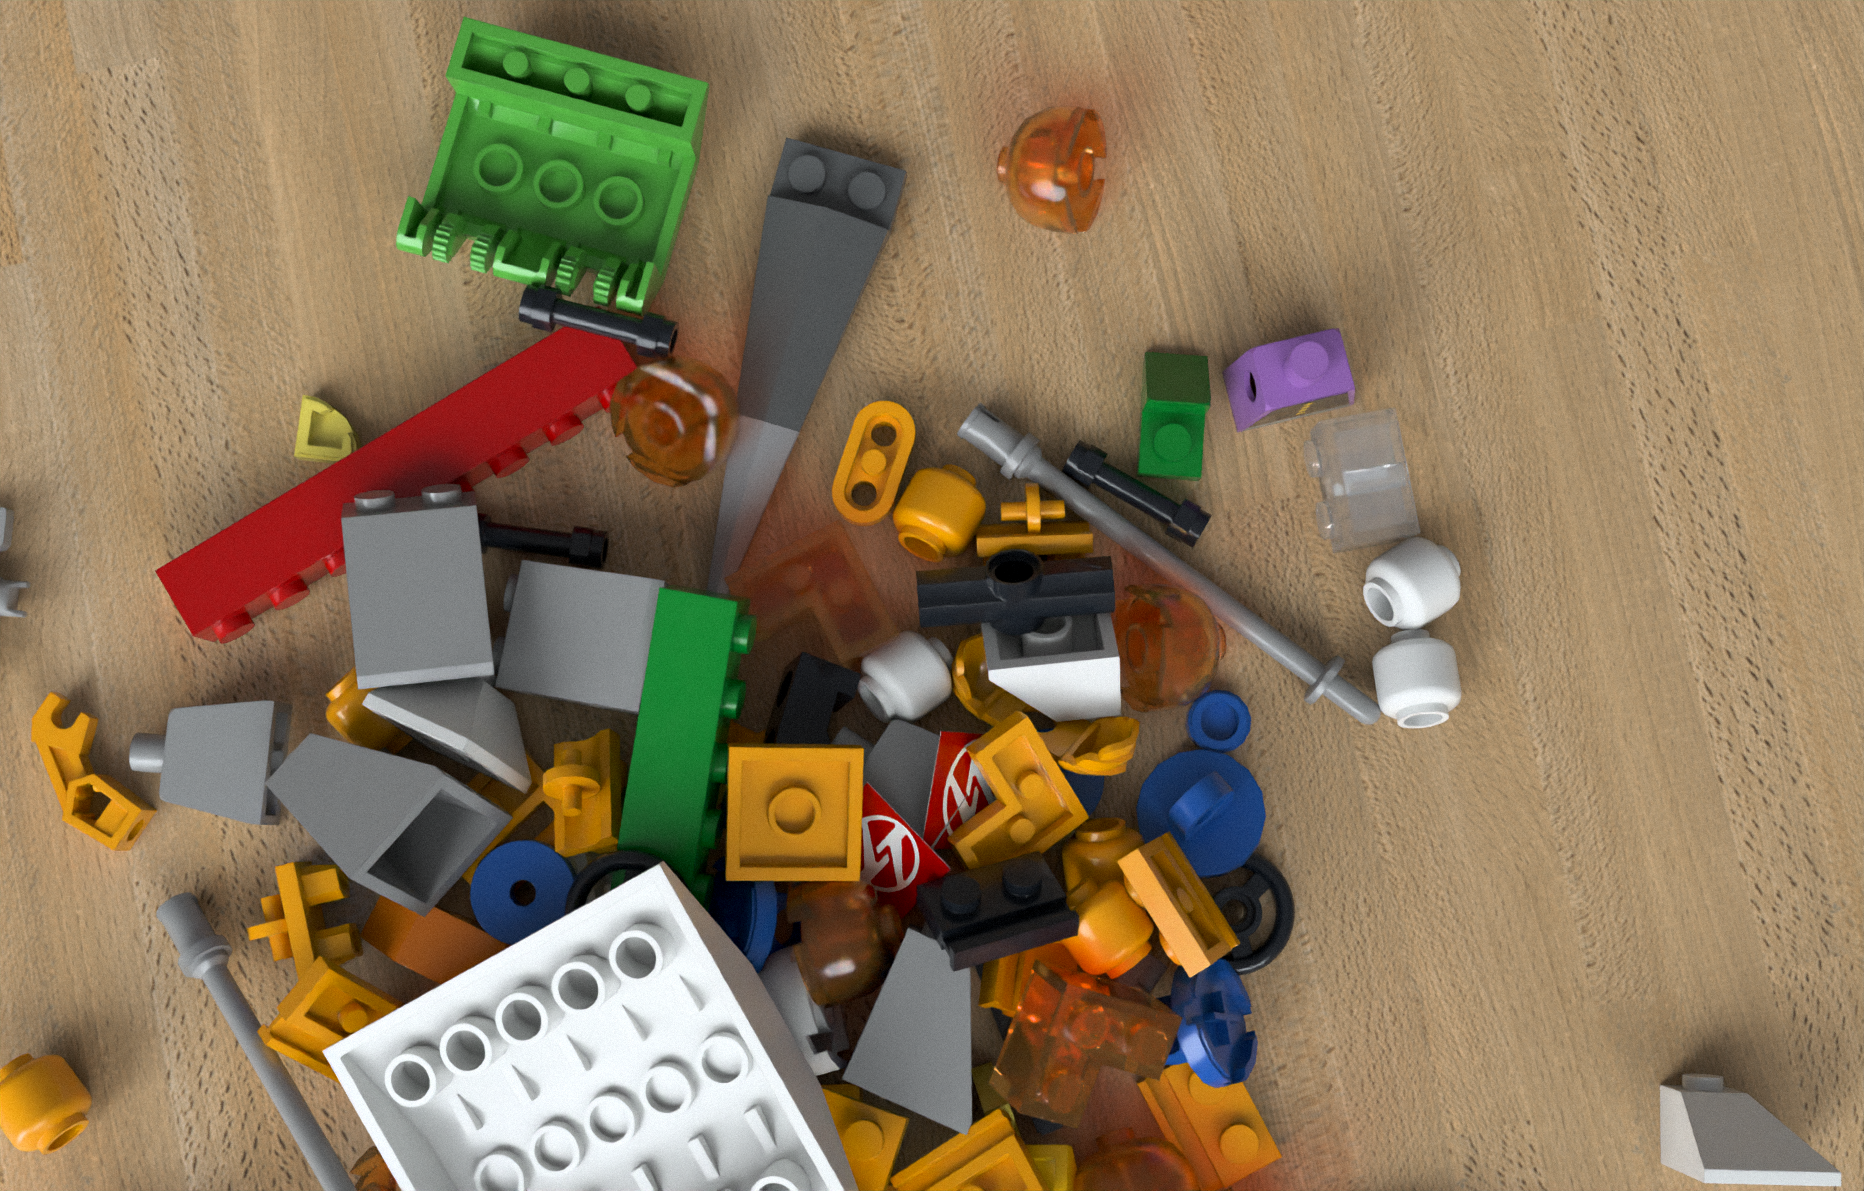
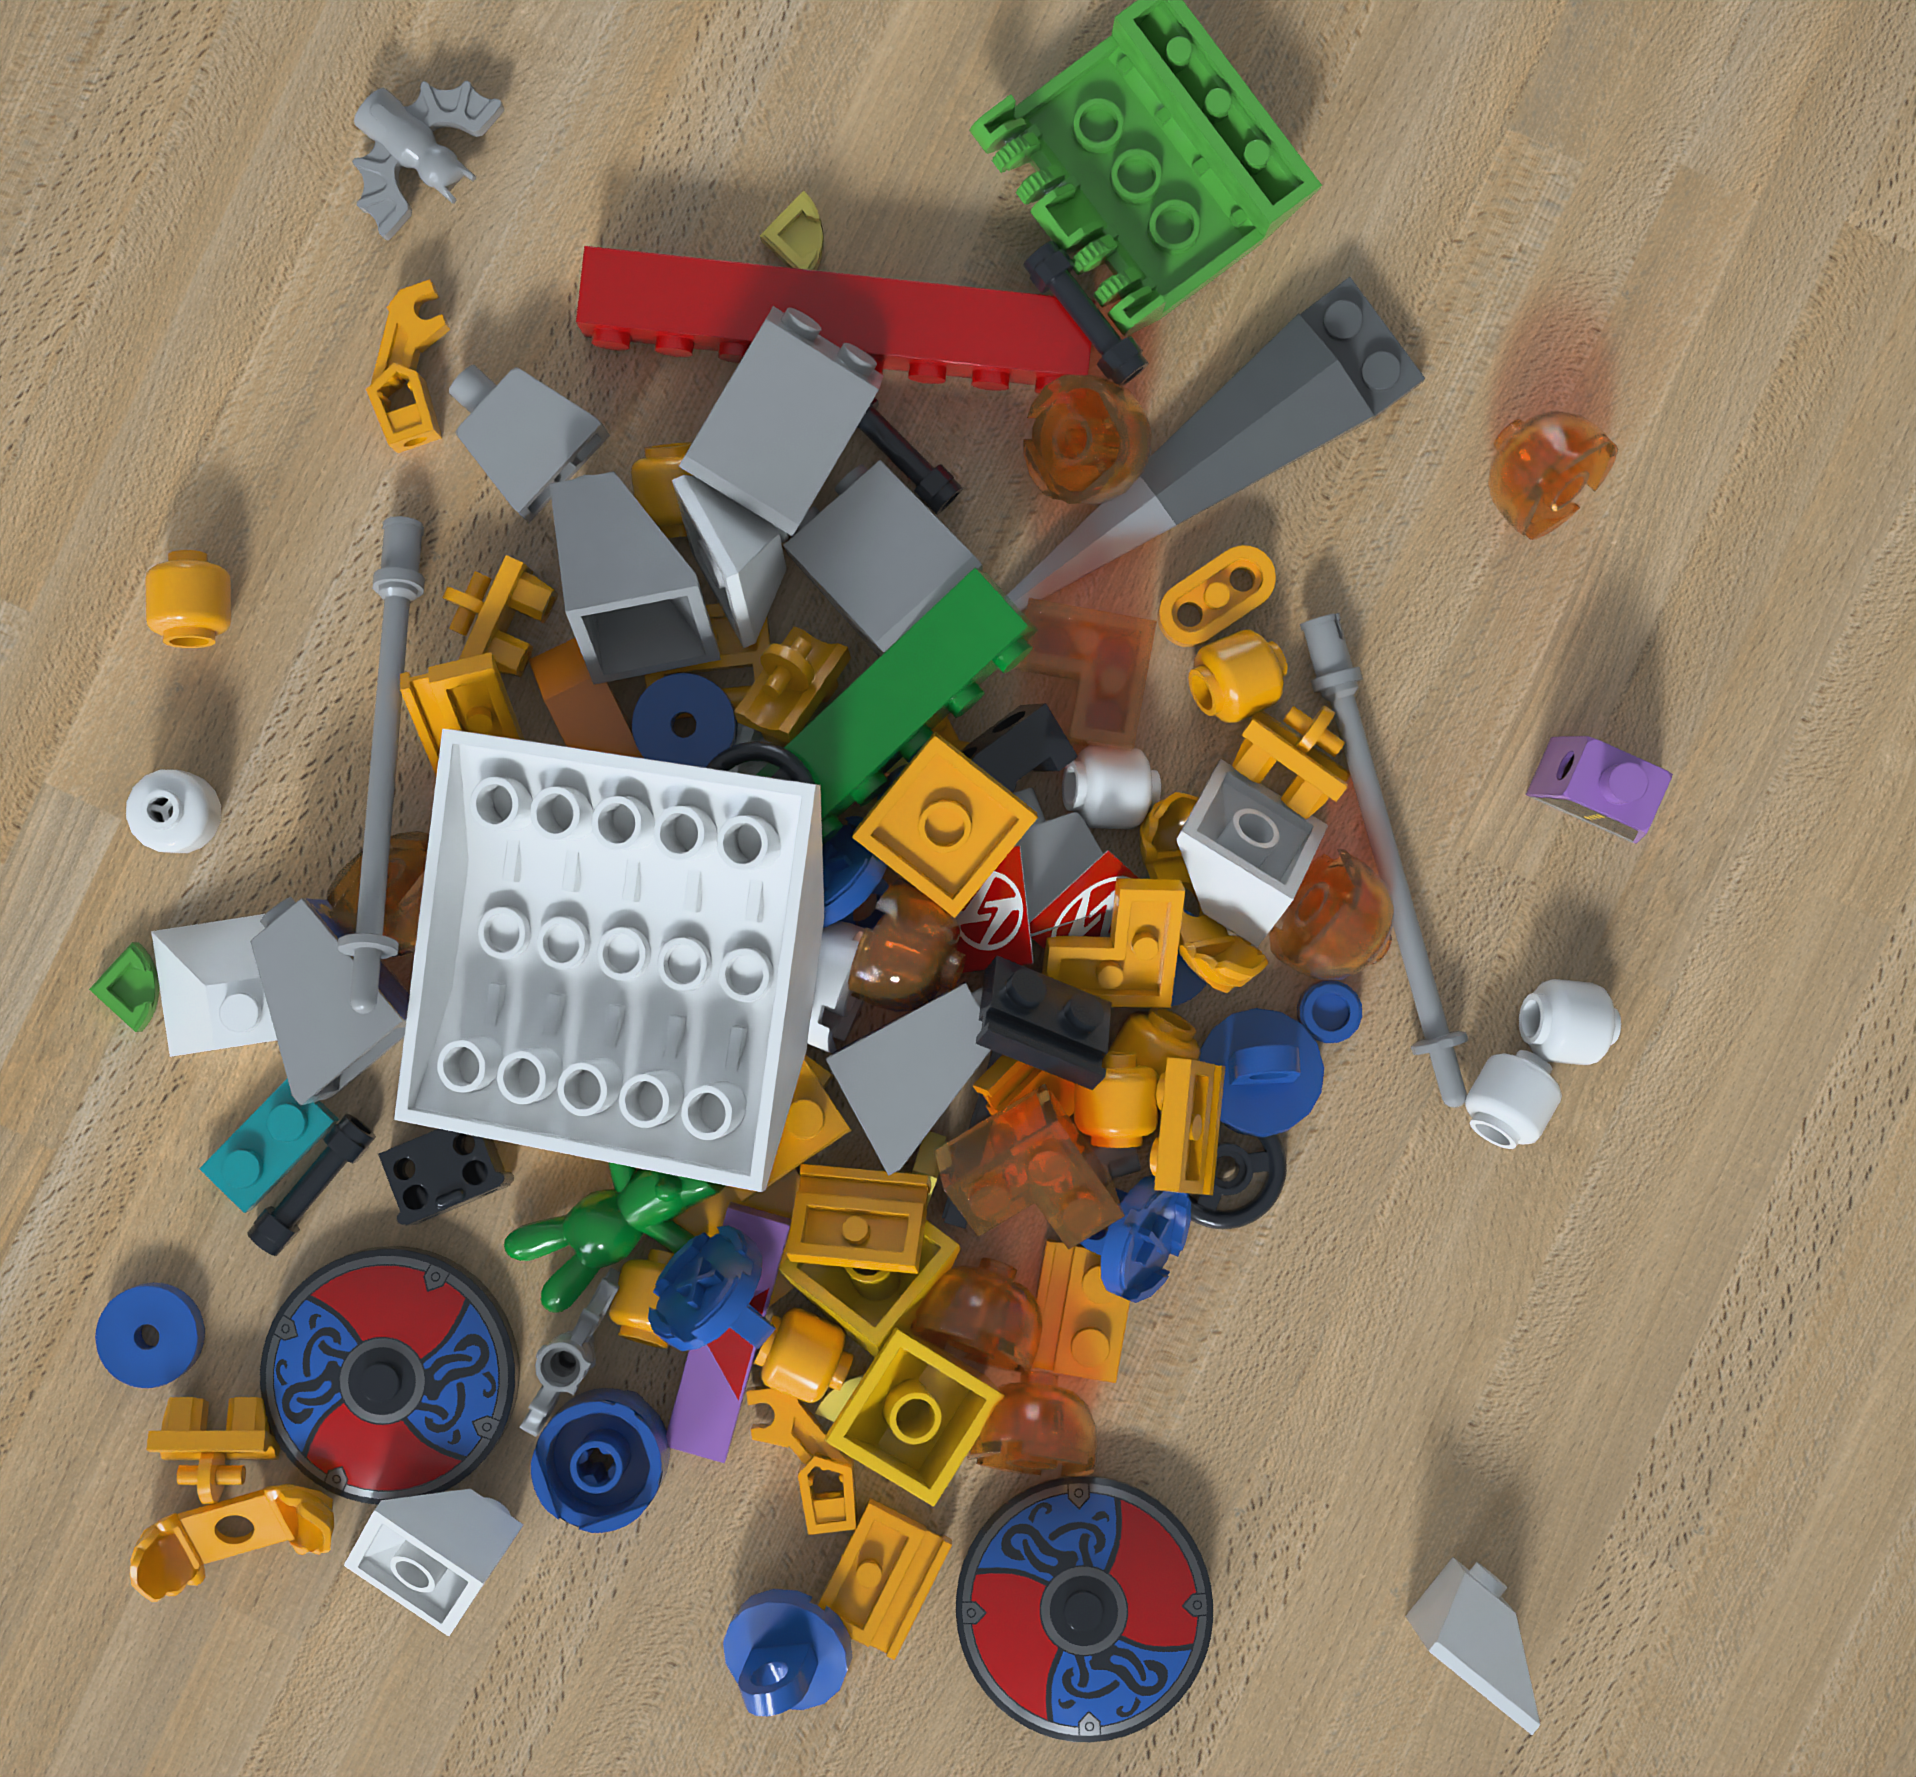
camera: 30 degrees right, 5 degrees up
(1015, 591) = (1251, 786): black piece -> none
(1173, 416) = (1484, 741): green slope -> none
(1183, 520) = (1427, 832): black bar -> none
(1361, 481) = (1594, 909): clear brick -> none

